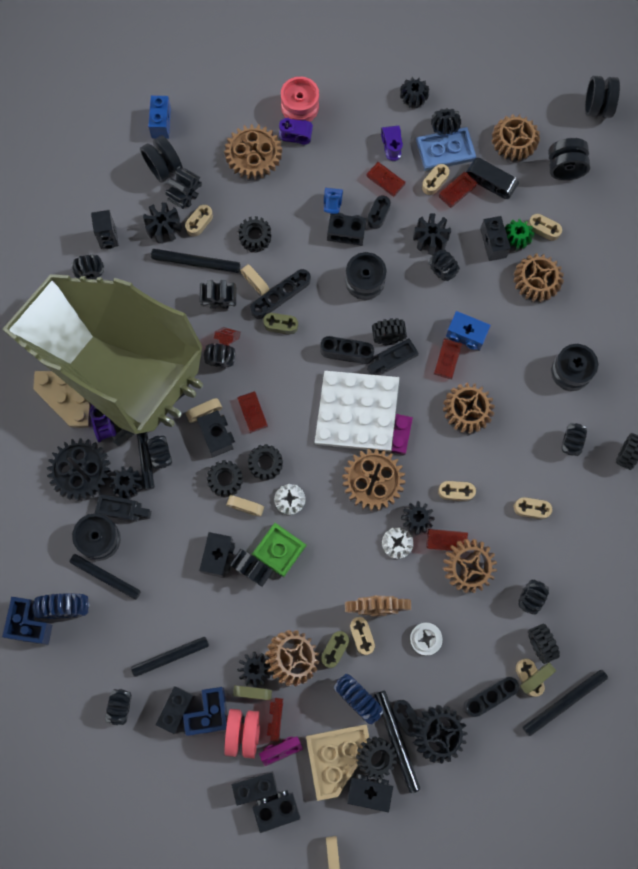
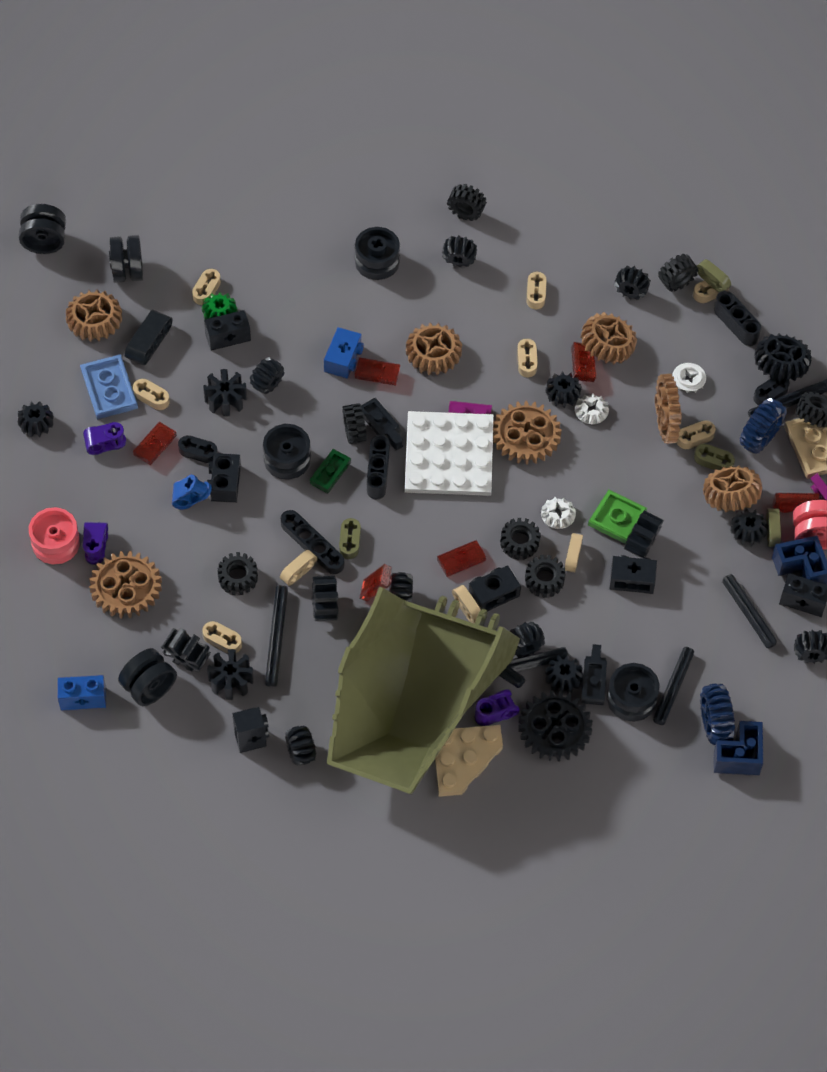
camera: 95 degrees left, 15 degrees down
(347, 312) = (330, 471): none -> dark green plate
(446, 121) = (77, 382): black gear -> none
(457, 189) = (165, 370): clear red plate -> none
(540, 271) = (269, 295): medium nougat gear -> none
(565, 702) = (730, 259): black axle -> none

